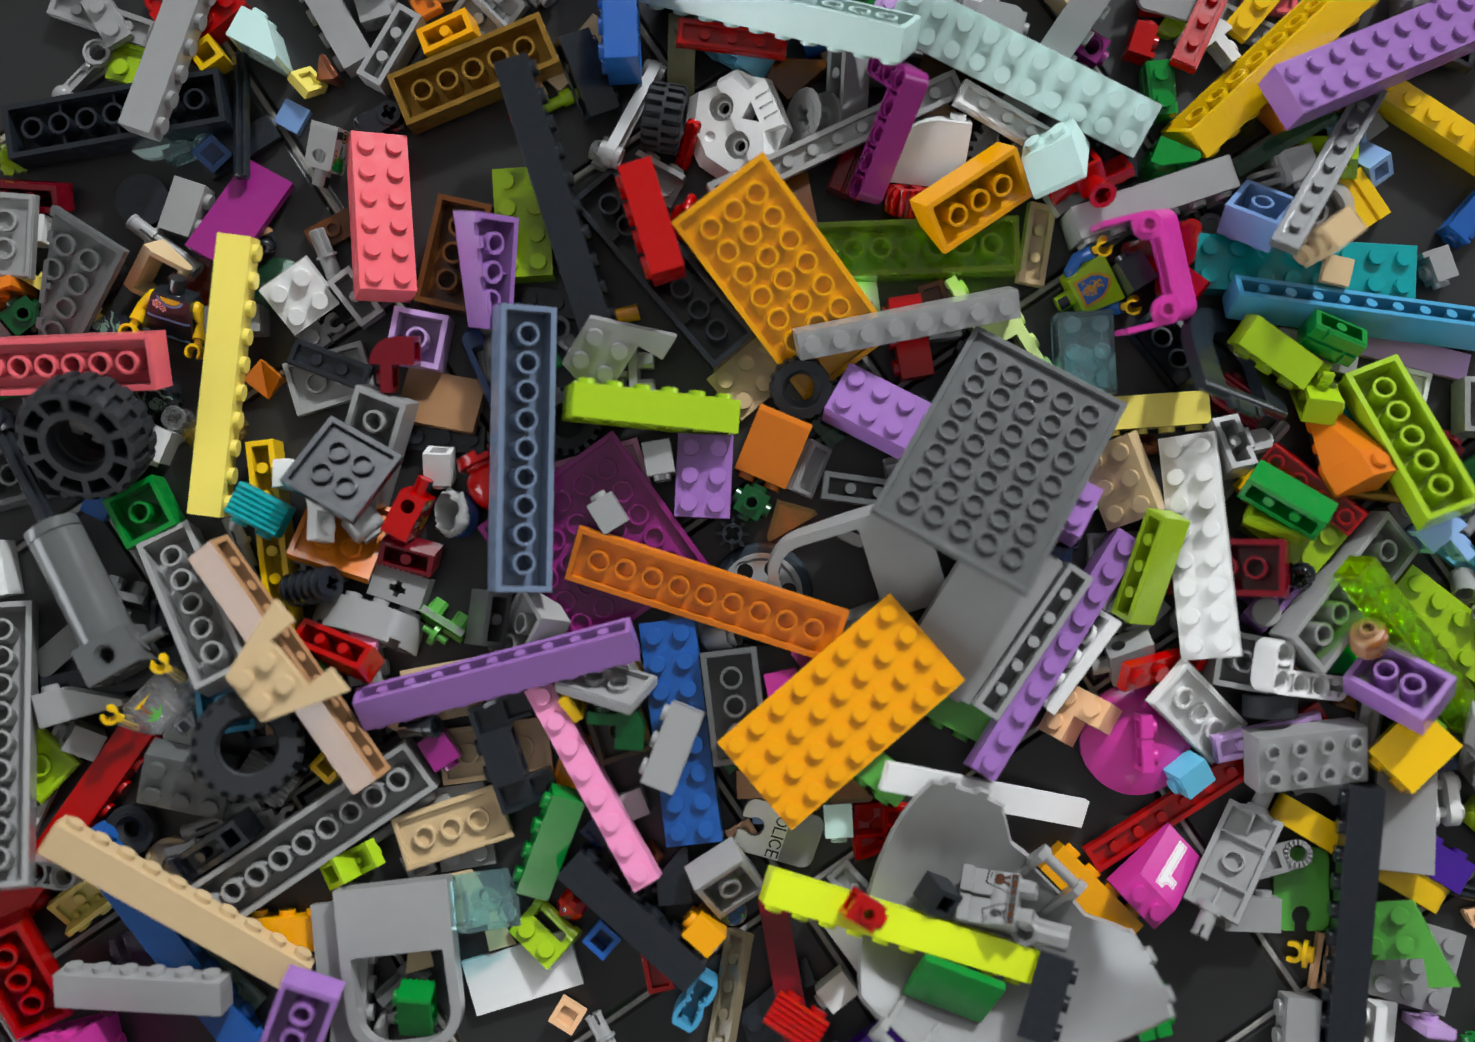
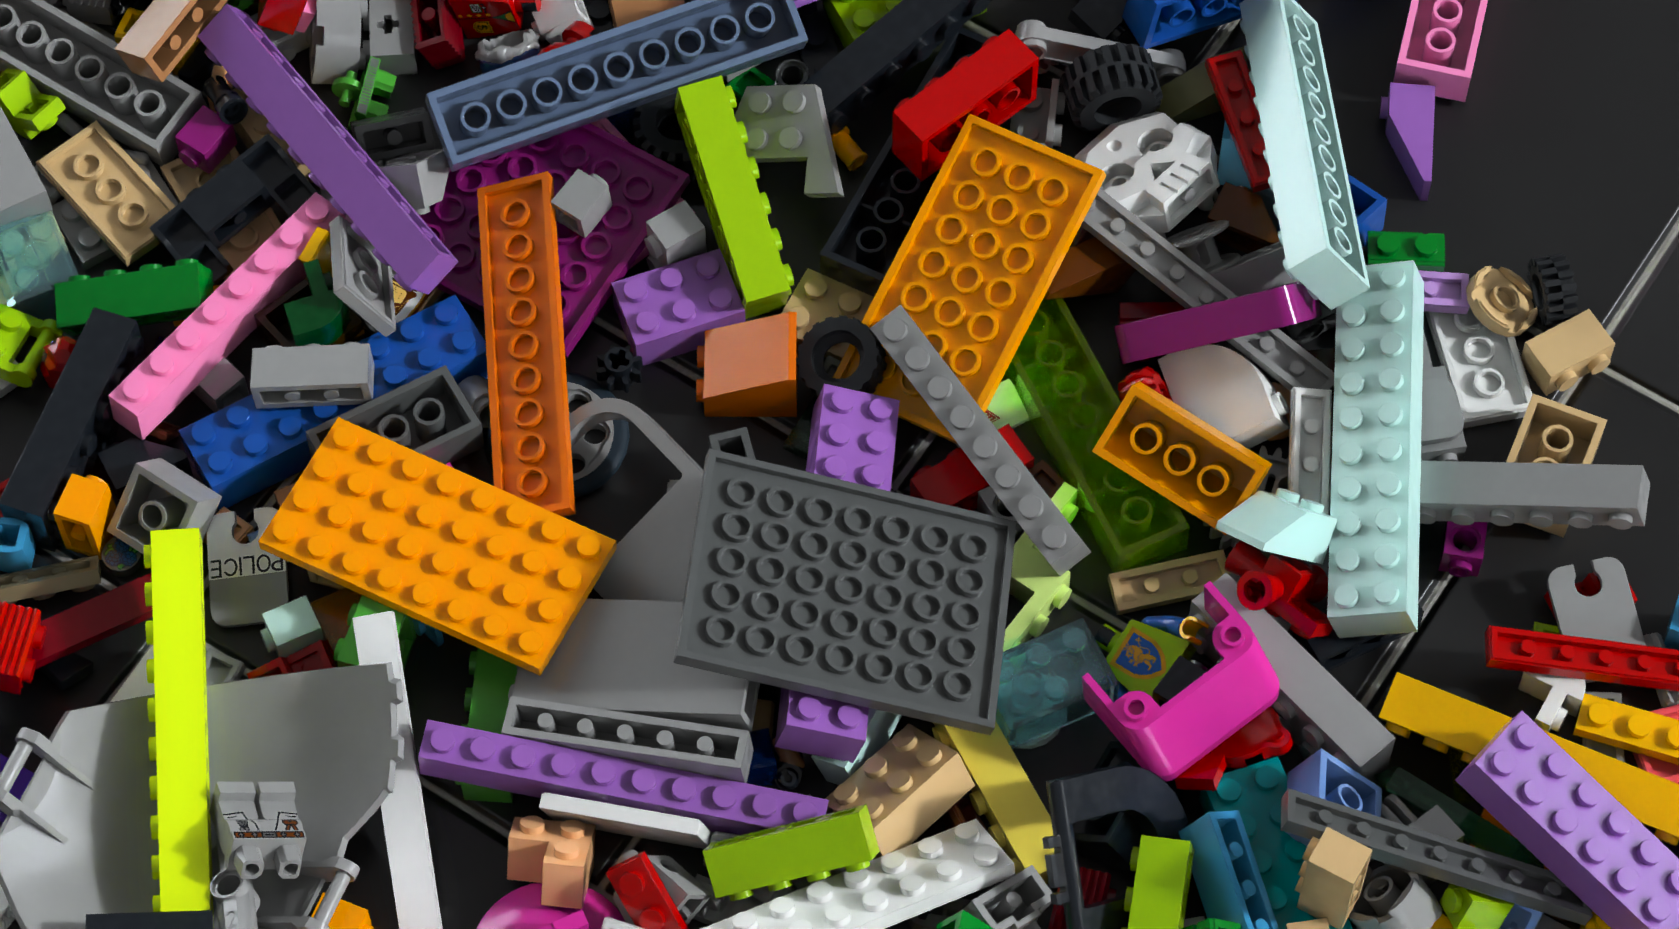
camera: 65 degrees right, 25 degrees down
(601, 938) = (27, 404): blue brick -> none
(638, 362) = (783, 182): light grey hips -> none
(688, 143) = (1093, 128): red axle -> none
(746, 513) = (668, 373): dark green brick -> none
(787, 517) = (671, 415): clear orange slope -> none
(809, 468) = (763, 424): light grey tile -> none
(835, 989) = (52, 702): white brick -> none
(855, 906) = (189, 666): red brick -> none
(937, 895) = (238, 759): black brick -> none
(954, 988) = (120, 827): green tile -> none
(1141, 42) = (1507, 605): red brick -> none
(1159, 85) = (1448, 649): green brick -> none
(1166, 158) = (1358, 673): green tile -> none

